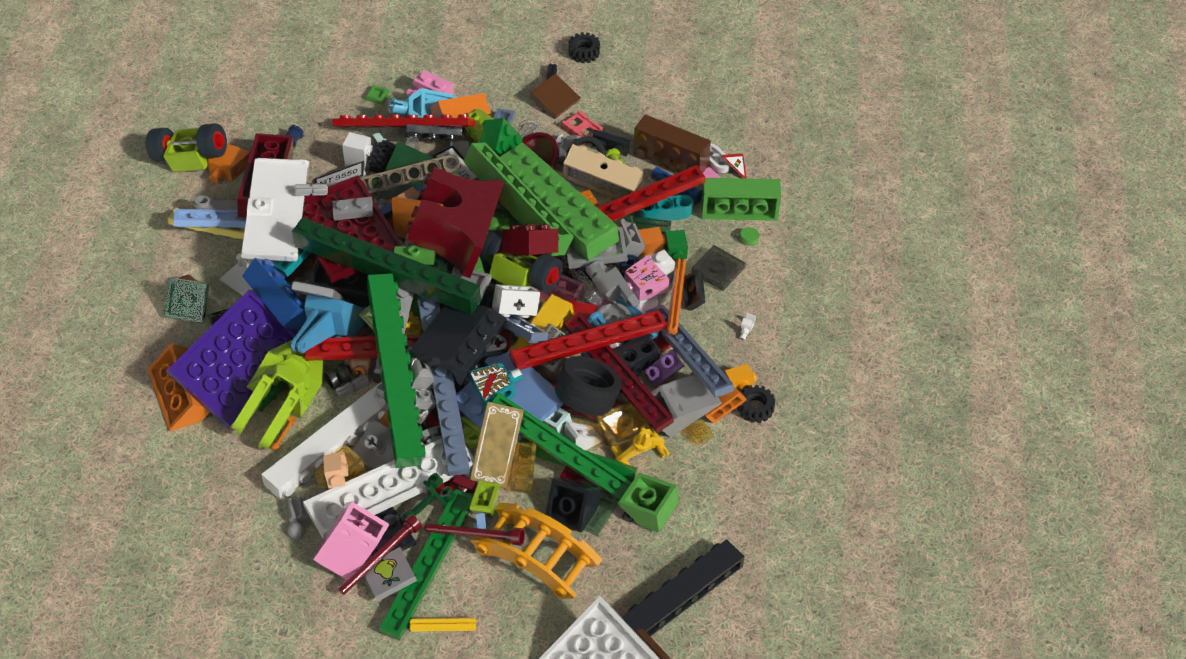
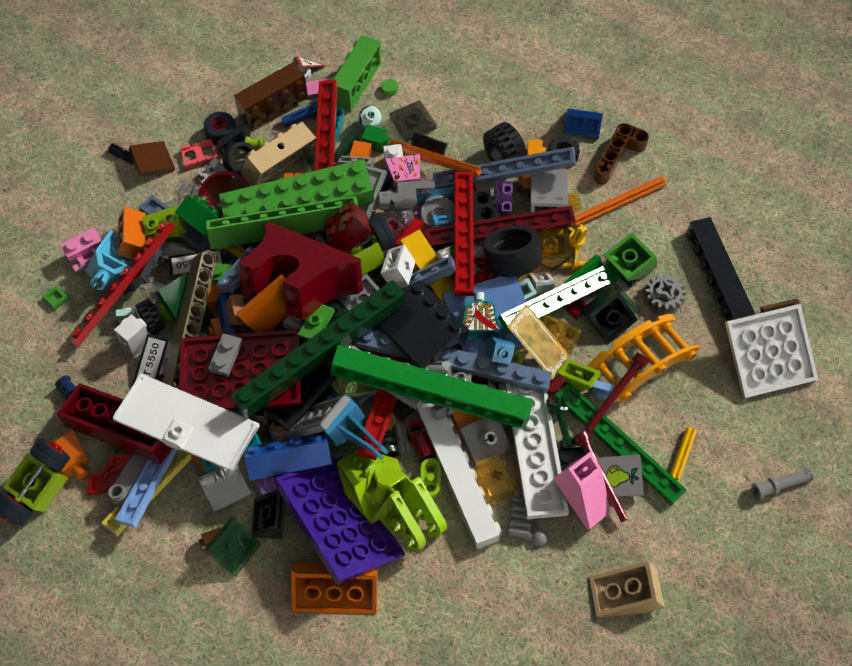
camera: 65 degrees left, 10 degrees up
(217, 192) = (104, 479): none -> red tile
(267, 619) = (627, 590): none -> tan slope
(306, 189) = (183, 379): light grey piece -> none
(317, 420) = (431, 479): none -> lime plate
(335, 469) = (510, 477): light nougat brick -> none
(358, 389) = (420, 442): none -> dark red piece
(467, 413) = (500, 350): none -> dark azure brick
(584, 54) = (101, 107): black tyre -> none
(618, 125) = (218, 125): none -> black wheel
(628, 548) = (664, 294): none -> light grey gear
(696, 230) = (369, 116): none -> light aqua head
(724, 343) = (503, 142): none -> black tyre
(726, 474) = (620, 200): none -> orange axle
(747, 325) = (480, 126): white piece -> none
(785, 447) = (624, 137): none -> reddish brown beam
(806, 406) = (583, 123): none -> blue bracket

